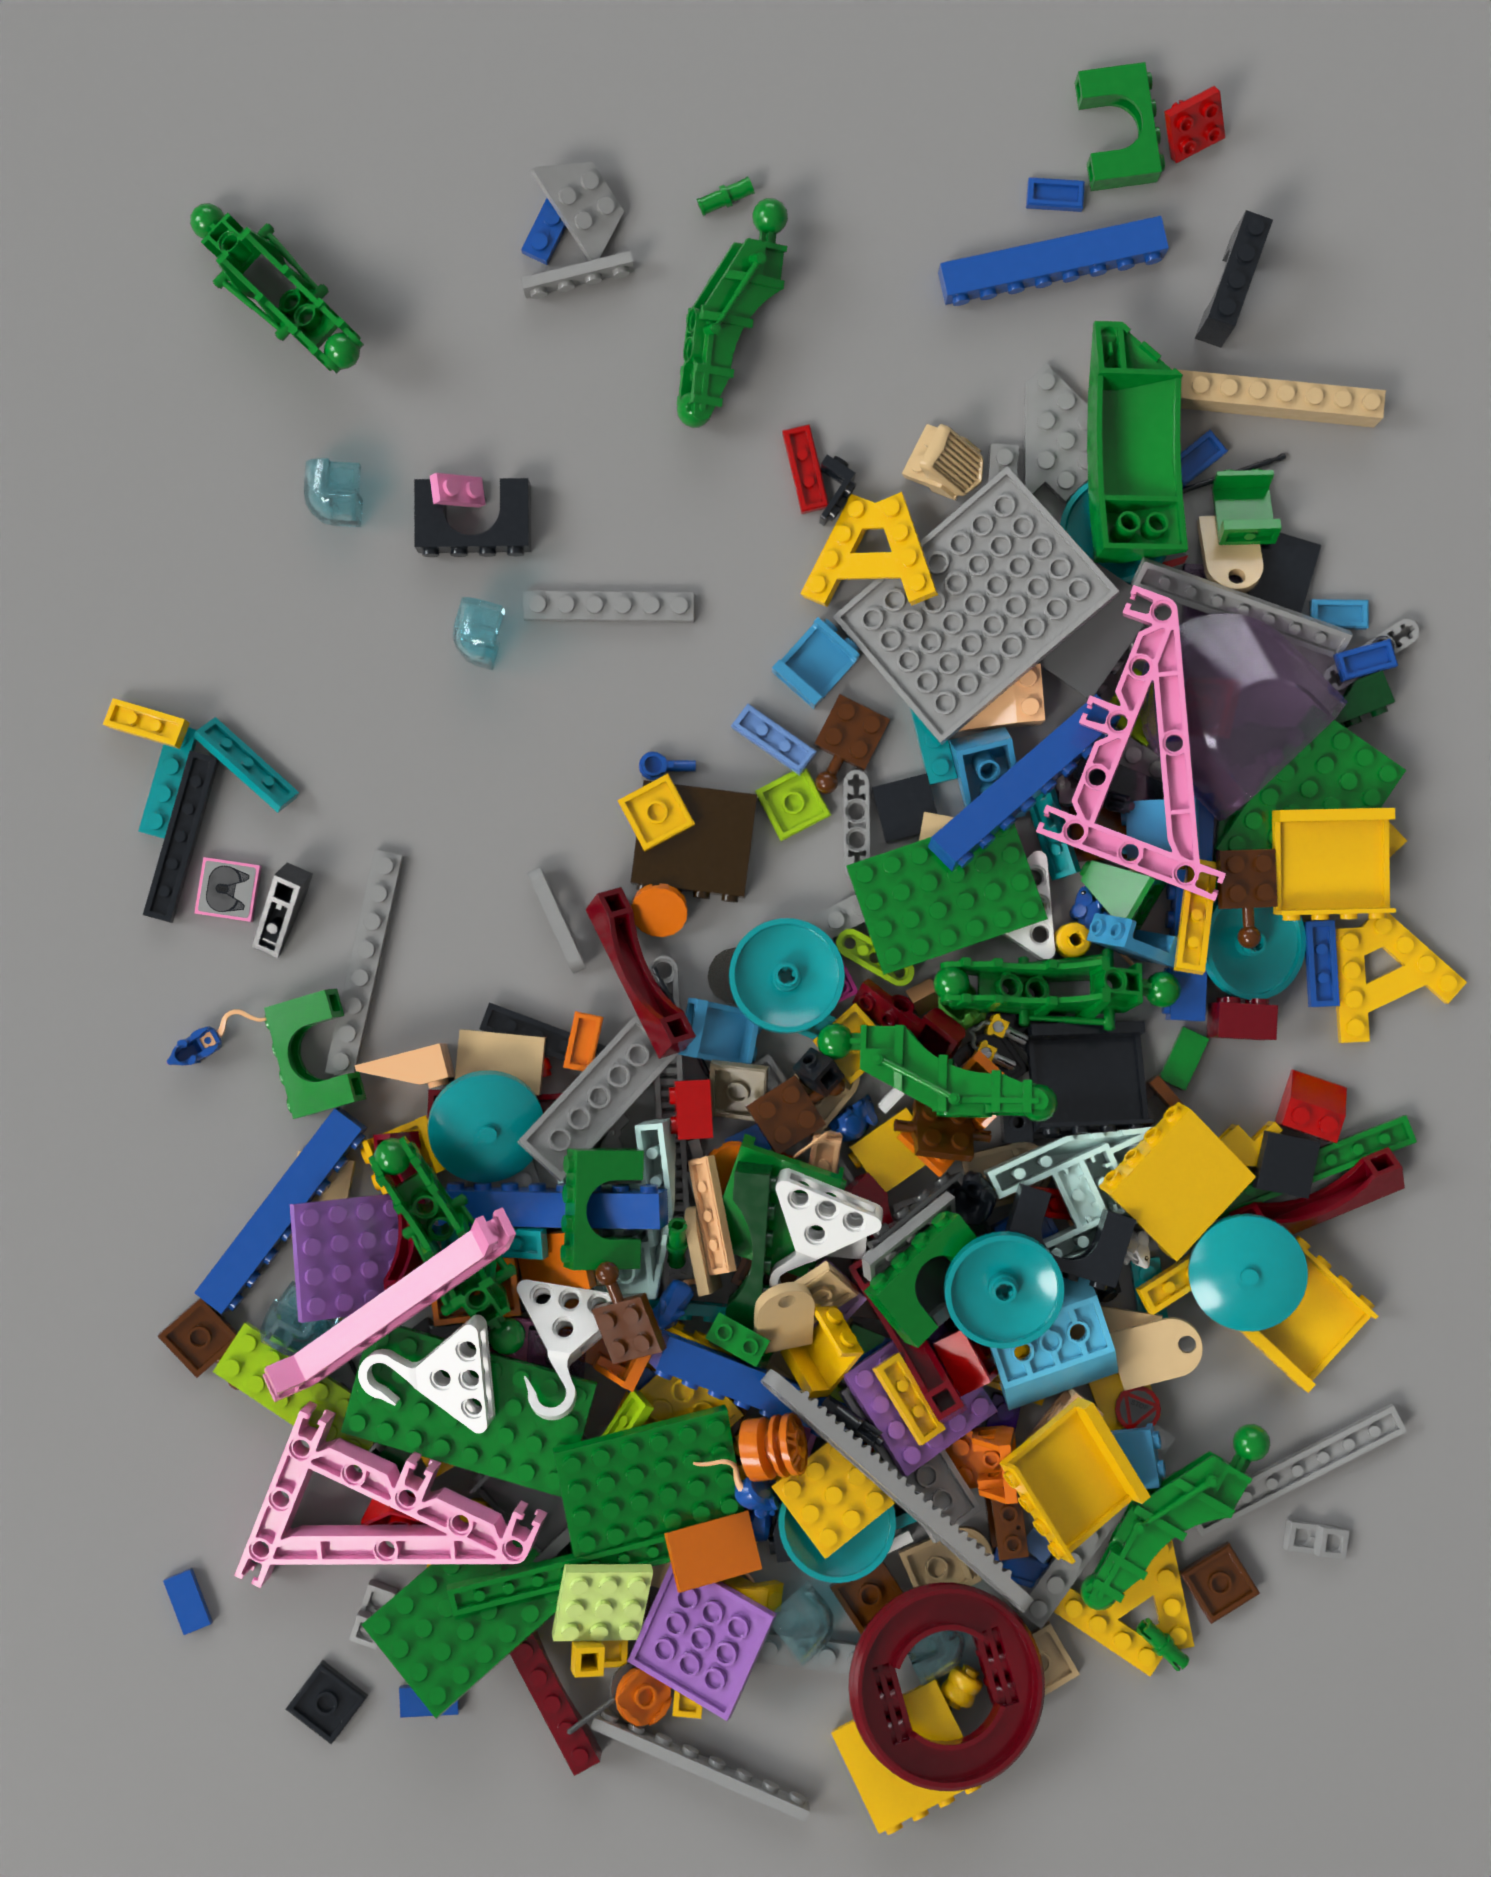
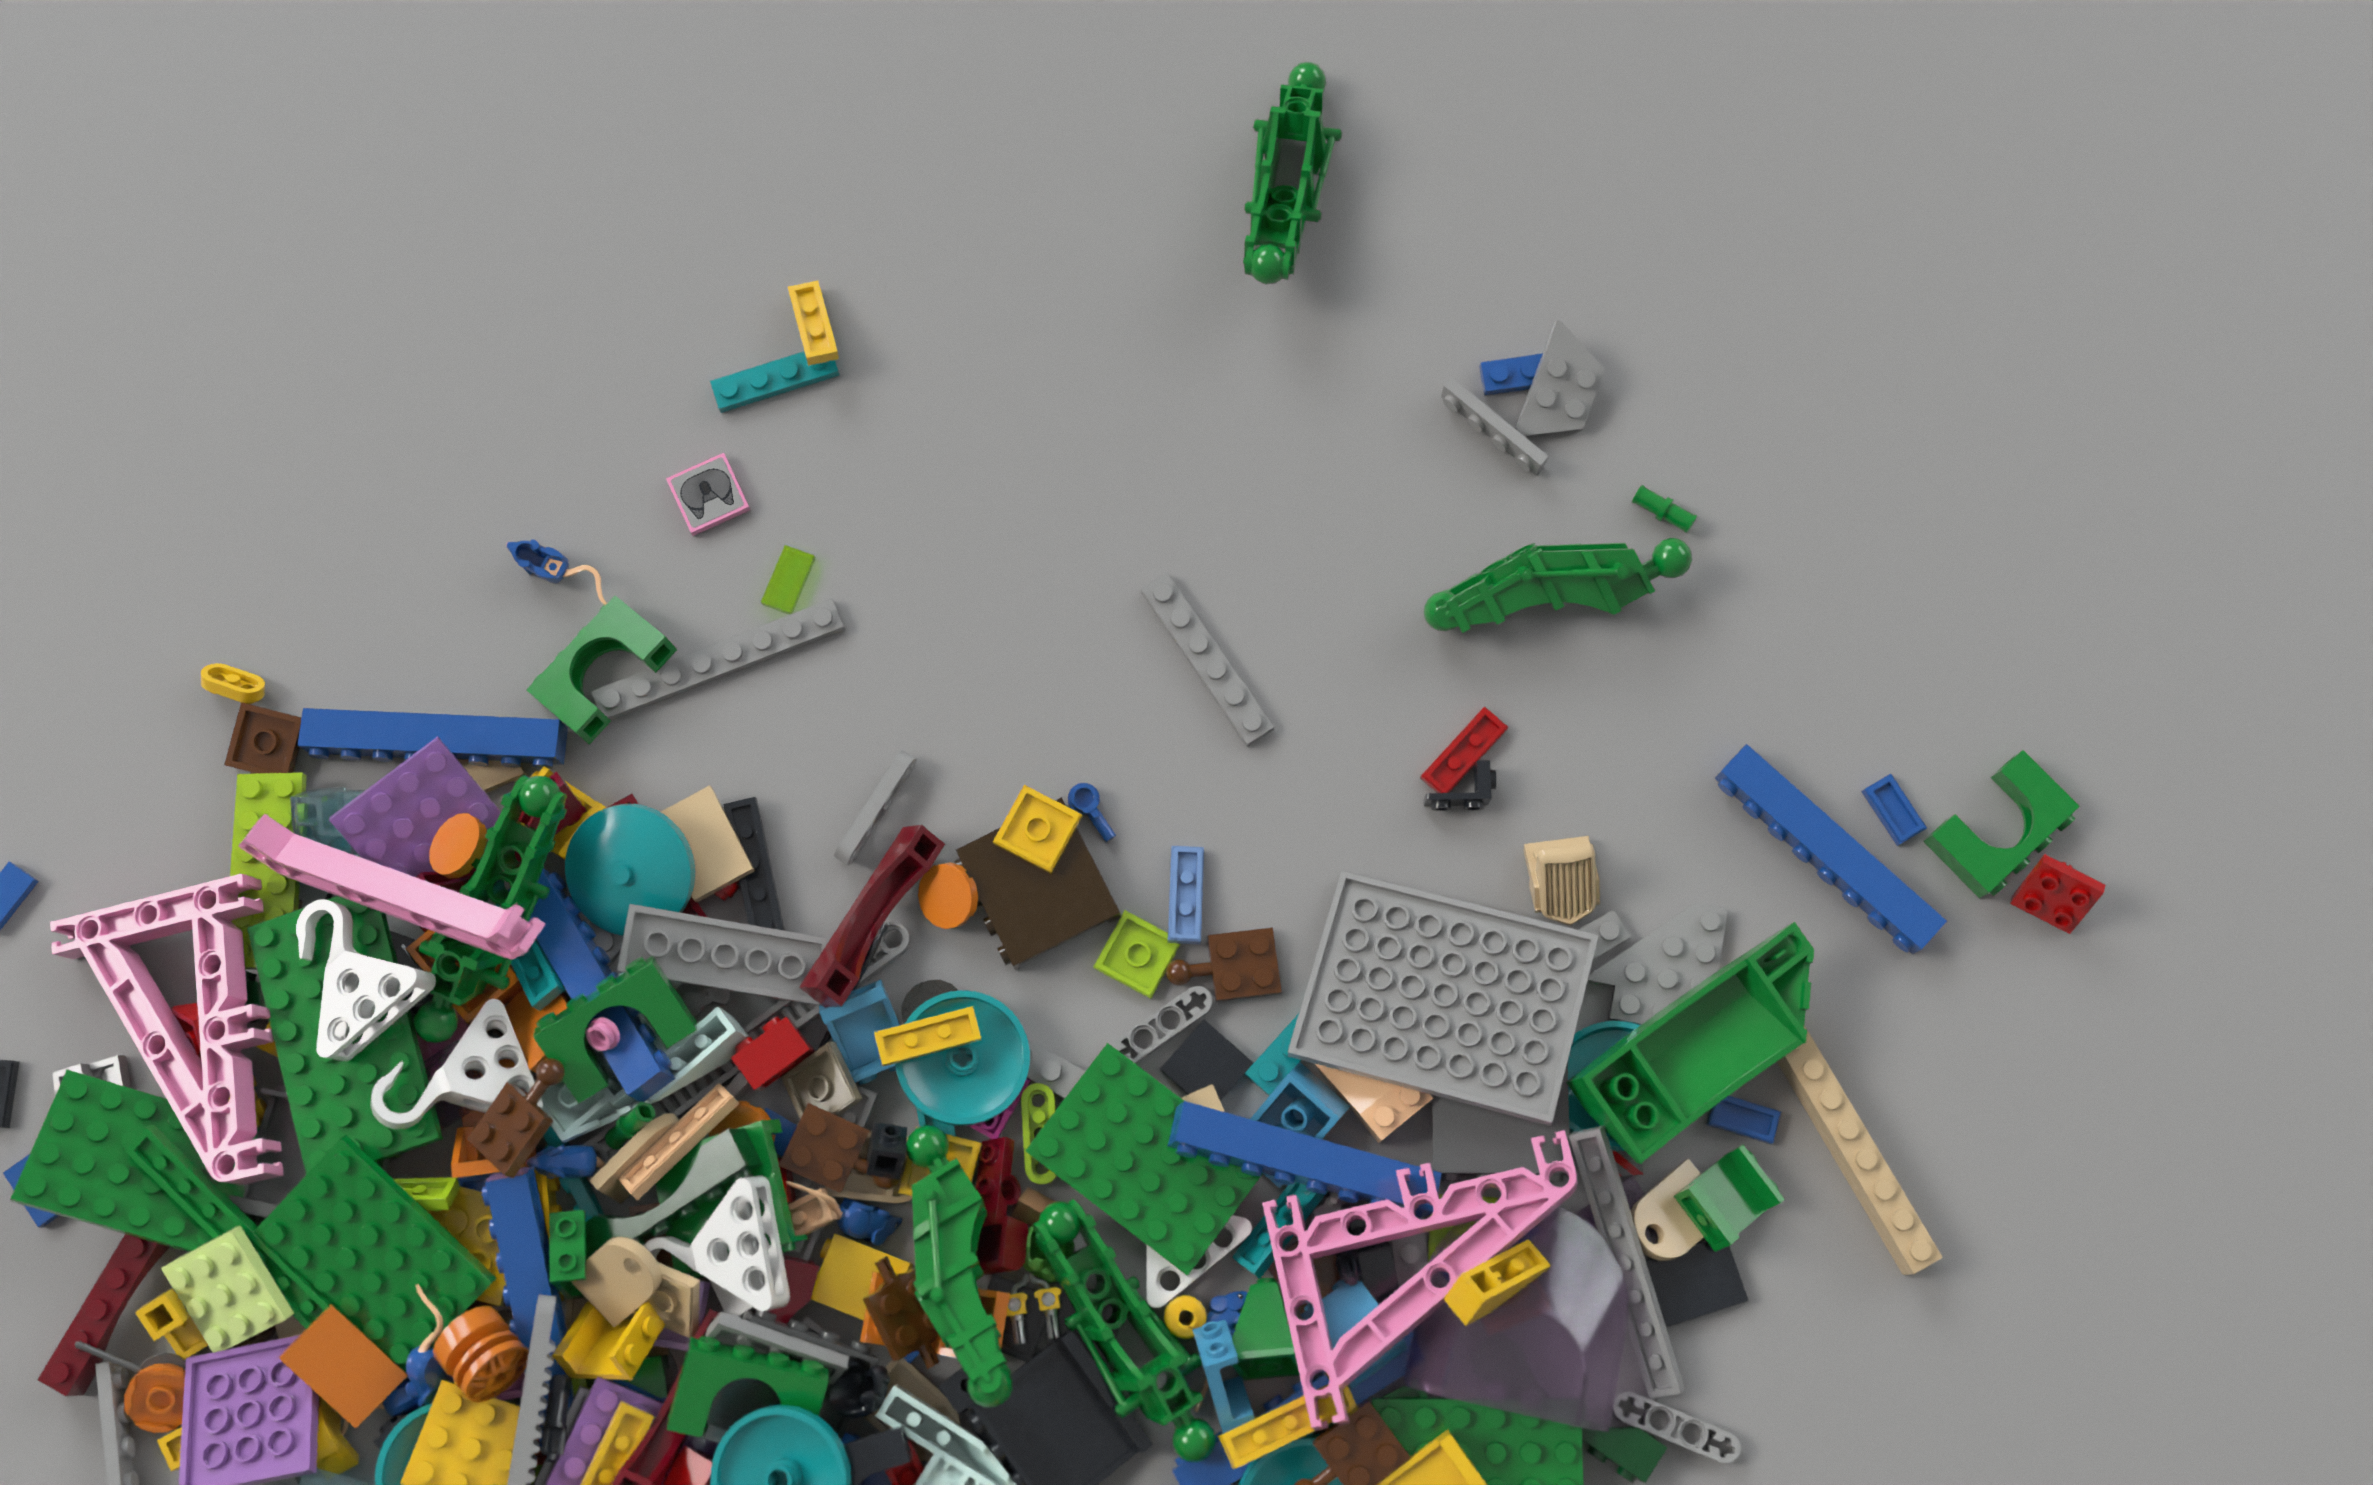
camera: 55 degrees right, 10 degrees down
(135, 1334) = (232, 683): none -> yellow plate
(181, 836) = (729, 421): black plate -> none
(246, 764) = (834, 434): teal plate -> none
(281, 908) = (721, 551): black slope -> none
(333, 492) = (1138, 345): clear light blue brick -> none
(336, 873) = (788, 580): none -> clear neon green tile
(384, 1240) = (457, 845): none -> orange tile
(421, 1066) = (655, 778): light nougat slope -> none
(457, 490) = (1217, 451): bright pink plate -> none
(477, 631) = (1096, 554): clear light blue brick -> none
(508, 534) = (1210, 523): black arch -> none
(583, 1041) = (774, 907): orange tile -> none
(603, 1219) = (602, 1034): none -> bright pink plate
(757, 989) = (927, 1036): none -> yellow plate
(816, 662) = (1287, 886): dark azure panel -> none
(841, 562) = (1437, 901): yellow plate -> none
(889, 1100) = (903, 1242): white tile -> none
(1202, 706) = (1495, 1281): none -> yellow slope
(1241, 262) = (1938, 1031): black arch -> none
(1249, 467) = (1730, 1146): black piece -> none
(1342, 613) = (1697, 1368): dark azure tile -> none
(1365, 660) = (1666, 1424): blue tile -> none

